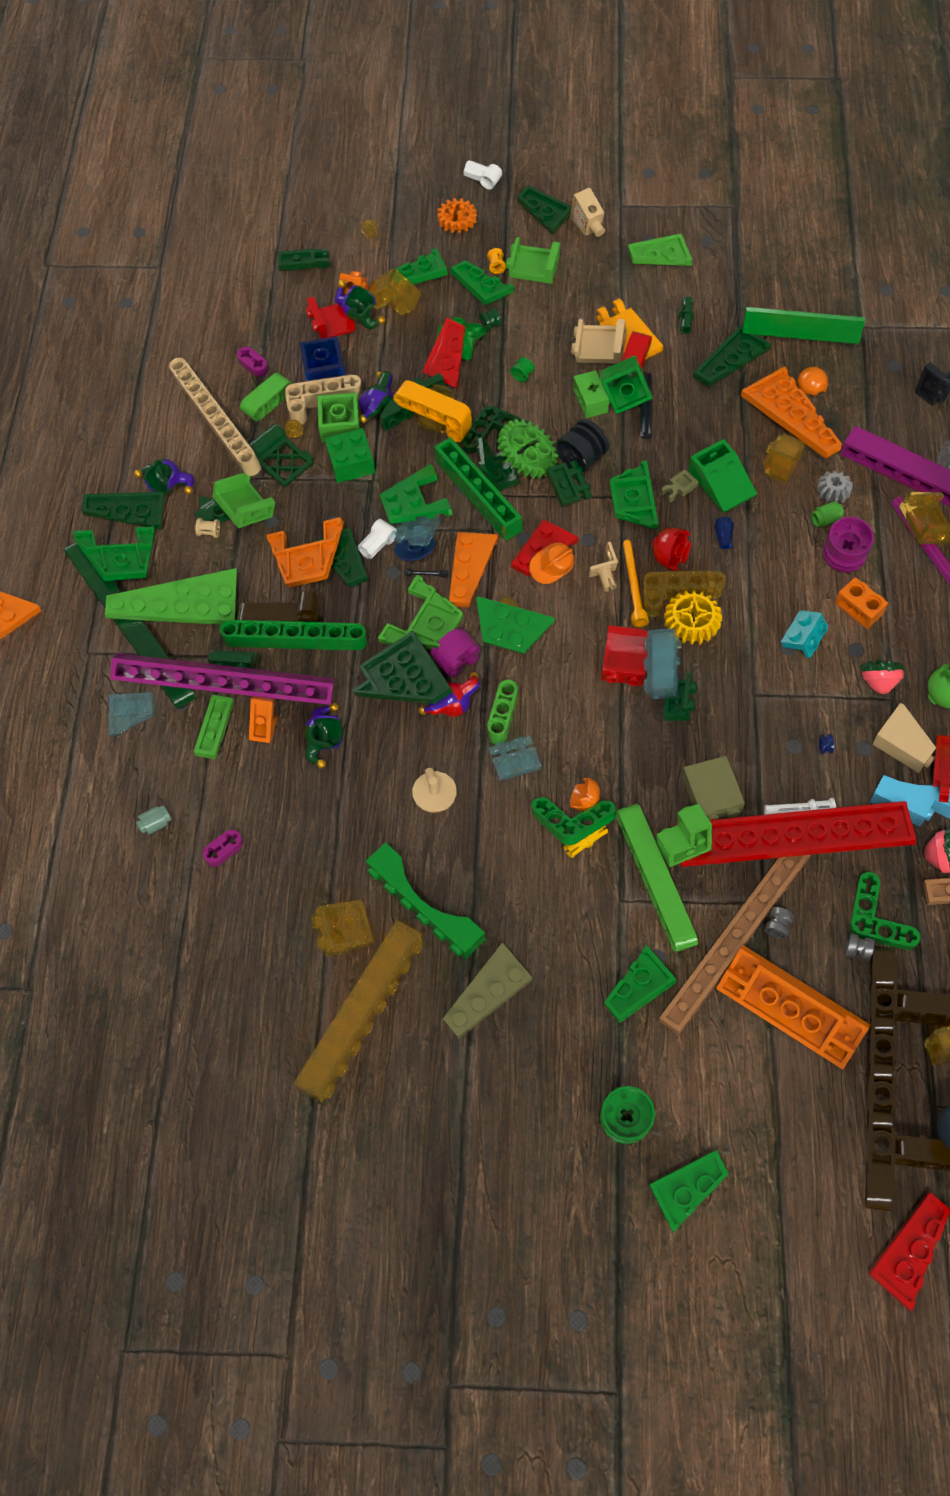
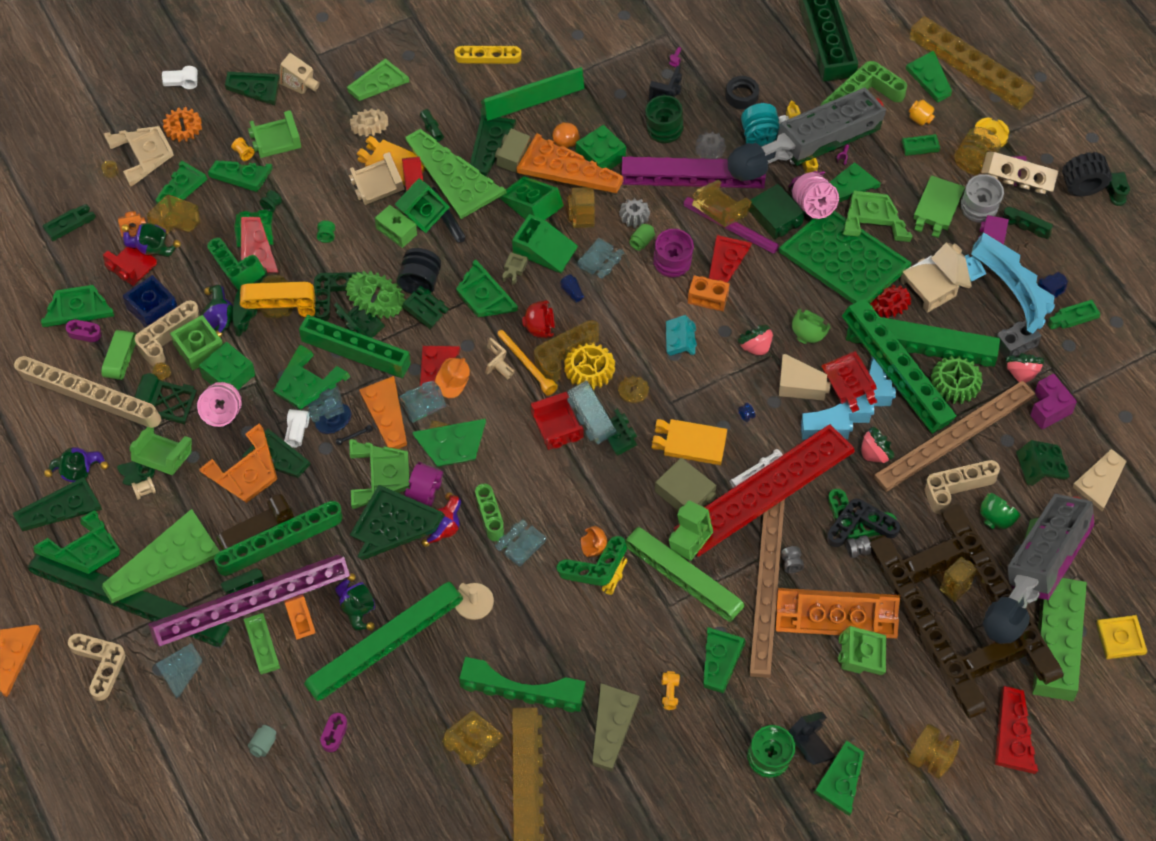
camera: 35 degrees left, 5 degrees down
(75, 664) = (106, 659): none -> tan beam
(261, 335) = (76, 304): none -> green wing
(308, 482) = (211, 411): none -> bright pink wheel
(324, 784) = (383, 641): none -> green beam
(412, 360) = (239, 273): none -> green beam
(414, 224) = (148, 147): none -> tan wing
(509, 571) = (423, 400): none -> clear light blue bracket
(574, 979) = (670, 679): none -> light orange bar
(627, 286) = (369, 122): none -> tan gear
(675, 1127) = (808, 741): none -> black bracket
(677, 376) = (457, 179): none -> bright green wing
(723, 670) = (638, 394): none -> clear yellow gear
(740, 427) = (533, 198): none -> green slope
(748, 370) = (512, 150): none -> olive brick
(750, 744) = (690, 441): none -> light orange tile
(759, 263) = (488, 58): none -> yellow beam
(769, 512) = (596, 255): none -> clear light blue plate
(795, 1063) = (862, 651): none -> bright green plate
(802, 1217) = (934, 751): none -> clear yellow wheel
(839, 408) = (602, 148): none -> green brick
(882, 917) = (862, 517): none -> black beam
(904, 576) = (727, 257): none -> red wing
(922, 407) = (664, 119): none -> dark green wheel

